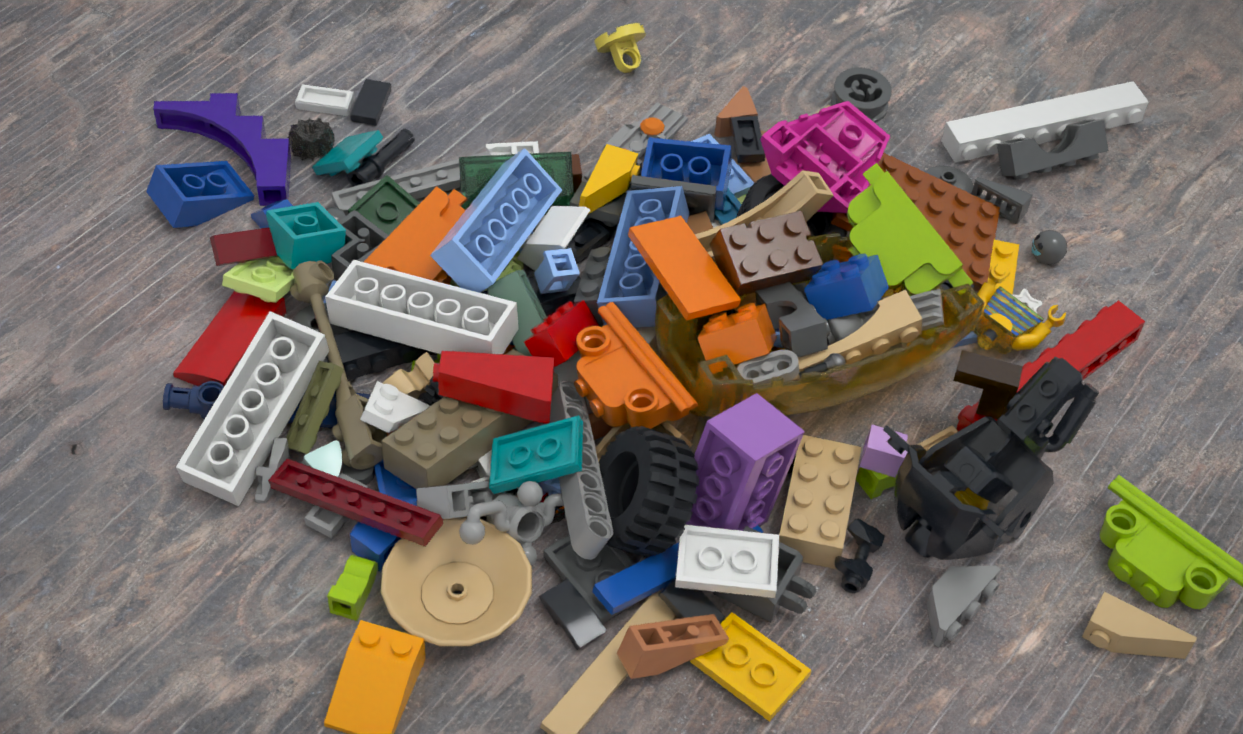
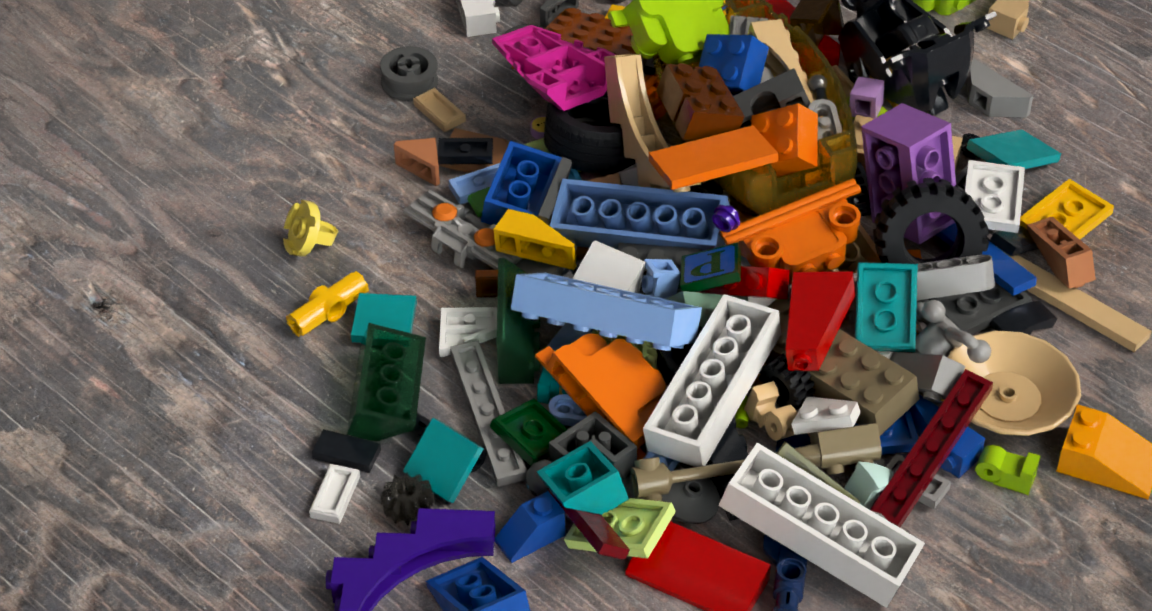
camera: 80 degrees left, 5 degrees down
(436, 106) = (386, 384): none -> clear green slope
(524, 108) = (383, 310): none -> teal tile
(539, 71) = (327, 303): none -> yellow piece
(557, 295) = (711, 268): none -> tile
(618, 296) = (726, 218): none -> dark purple plate
(844, 610) = (1014, 149): none -> teal tile

